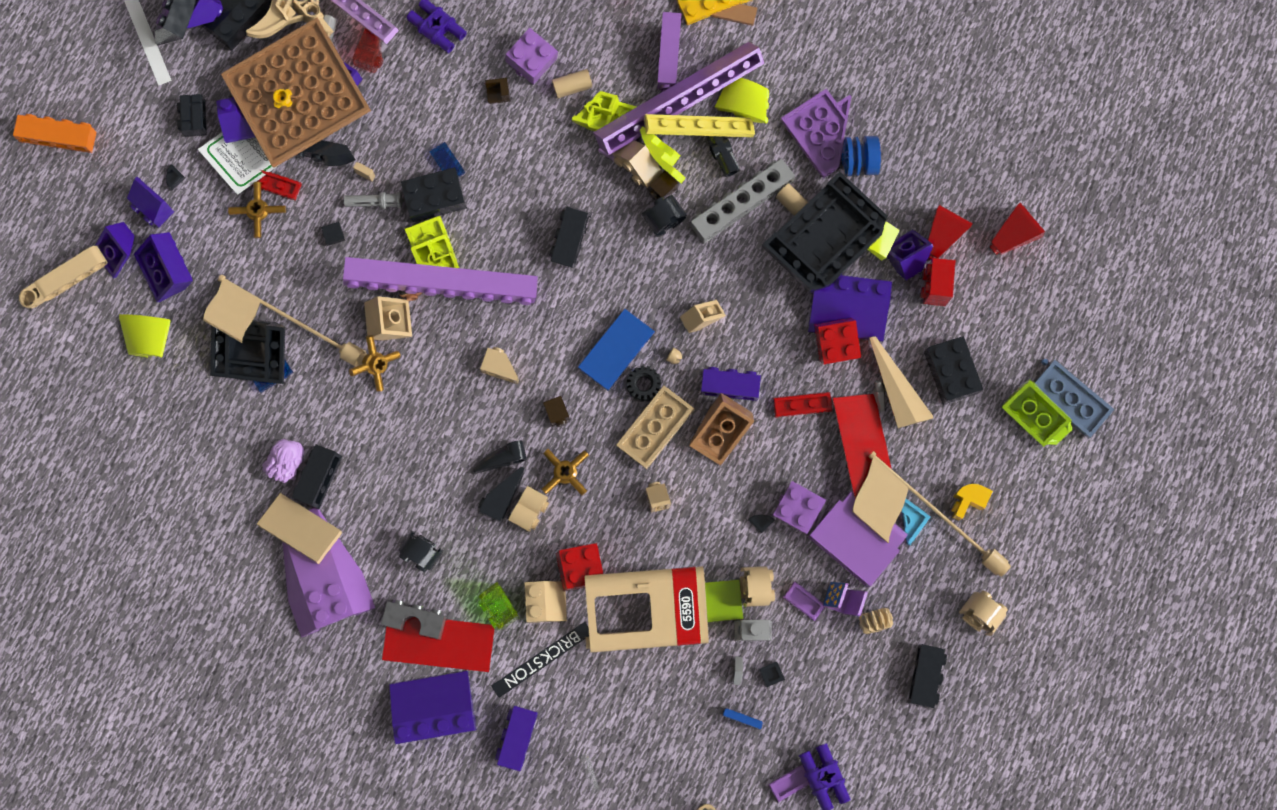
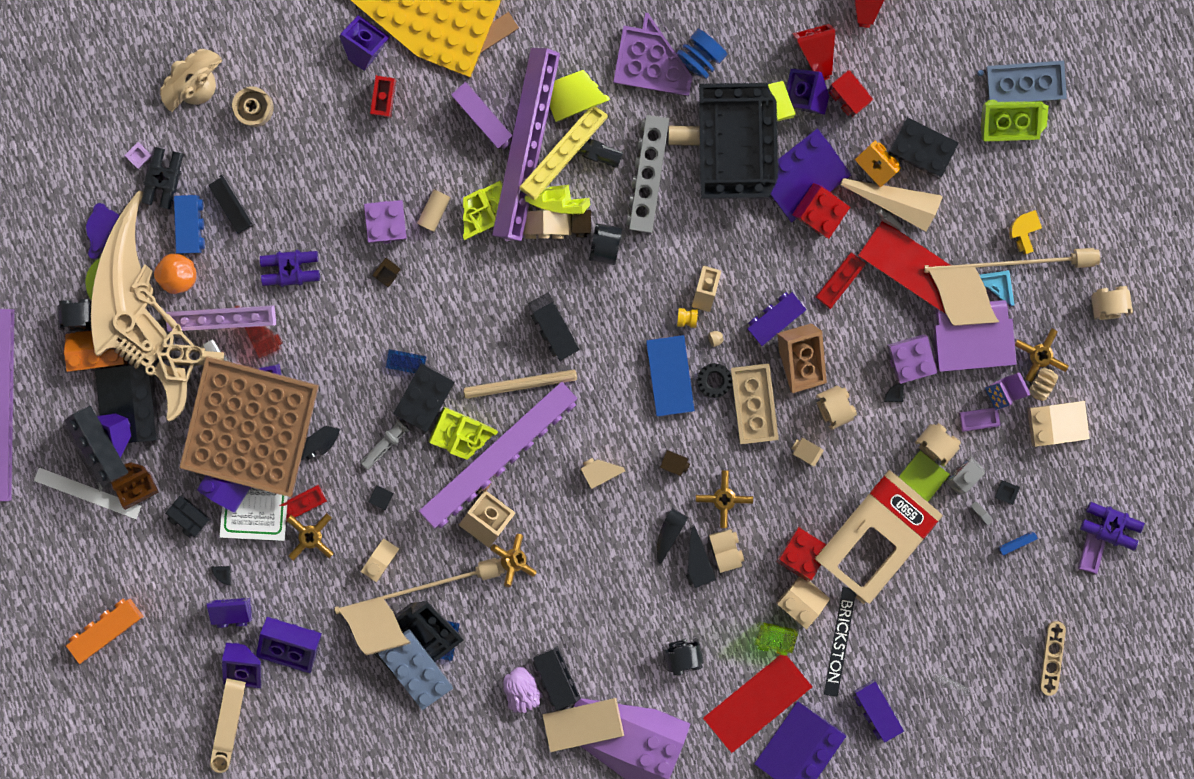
camera: 45 degrees left, 10 degrees up
(144, 334) = (329, 705): neon yellow slope -> none
(181, 59) = (135, 485): none -> reddish brown slope
(227, 371) = (417, 671): none -> sand blue plate
(278, 94) = (241, 442): yellow plate -> none
(285, 273) = (380, 560): none -> tan slope
(364, 171) = (355, 430): tan tile -> none
(431, 622) = (711, 711): flat silver arch -> none
(507, 252) = (519, 384): none -> tan axle
(668, 322) = (687, 318): none -> yellow wheel
(710, 486) = (836, 407): none -> tan brick
(858, 661) = (1058, 423): none -> slope
(886, 602) = (1049, 359): none -> pearl gold bar
(904, 343) = (879, 173): none -> light orange brick
(927, 676) = (1115, 386): black brick -> none

